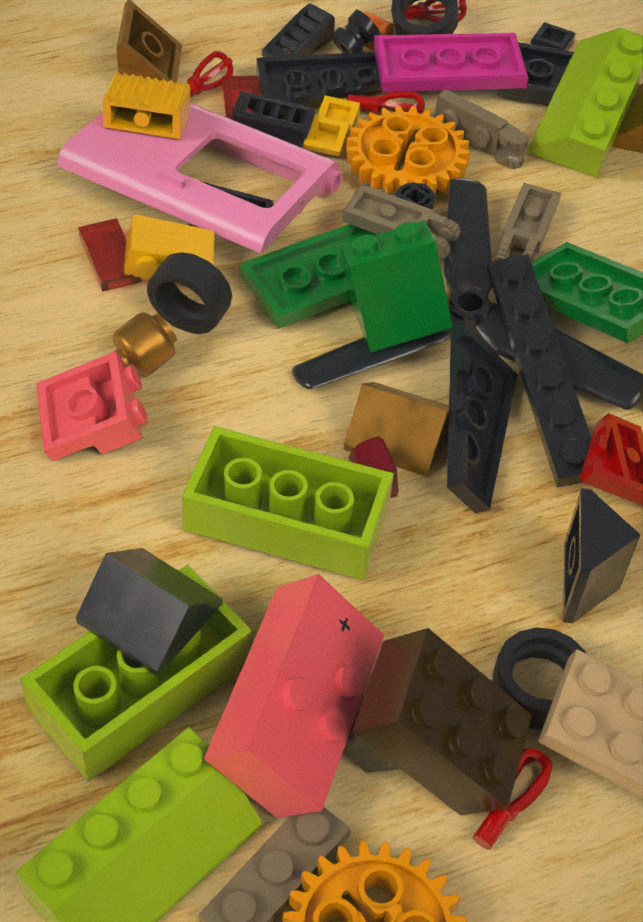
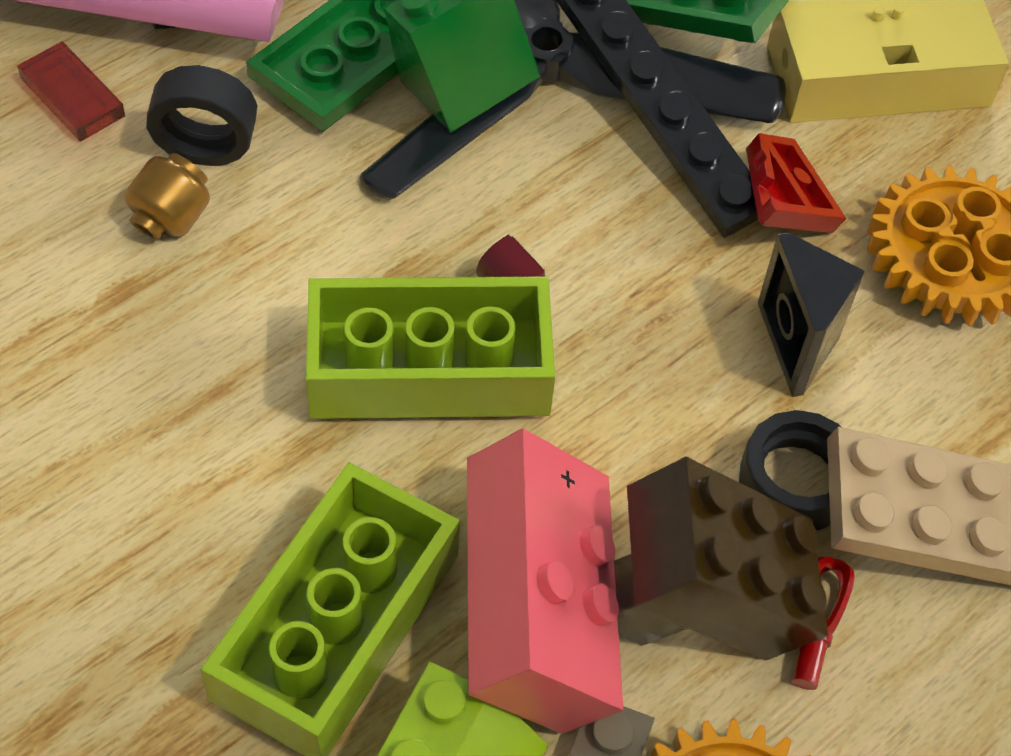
camera: 20 degrees left, 5 degrees up
(91, 407) = (133, 297): coral plate -> none
(145, 607) = (323, 533): black slope -> none
(154, 239) = (132, 61): yellow brick -> none
(406, 422) = (524, 204): pearl gold slope -> none
(478, 416) = (609, 177): black wing -> none

